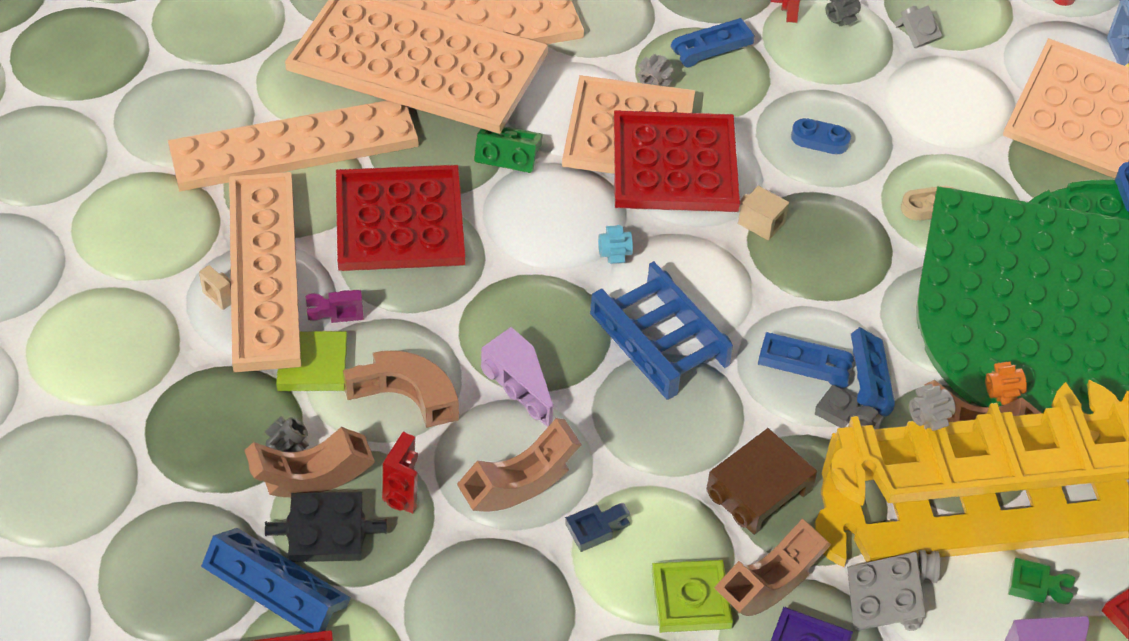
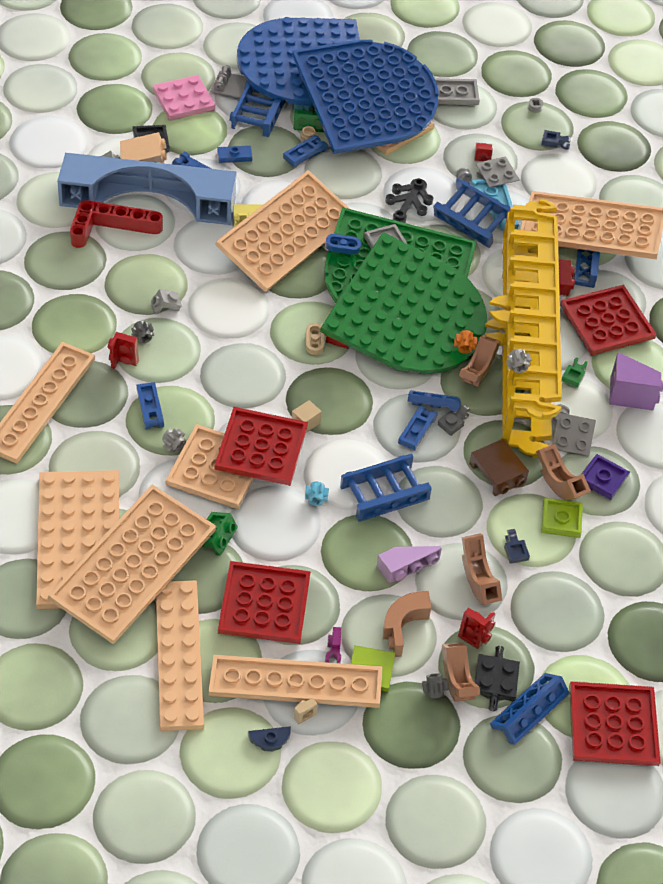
camera: 80 degrees left, 0 degrees up
(169, 261) = (270, 739): none -> dark blue plate
(820, 136) = (245, 375): blue plate -> none

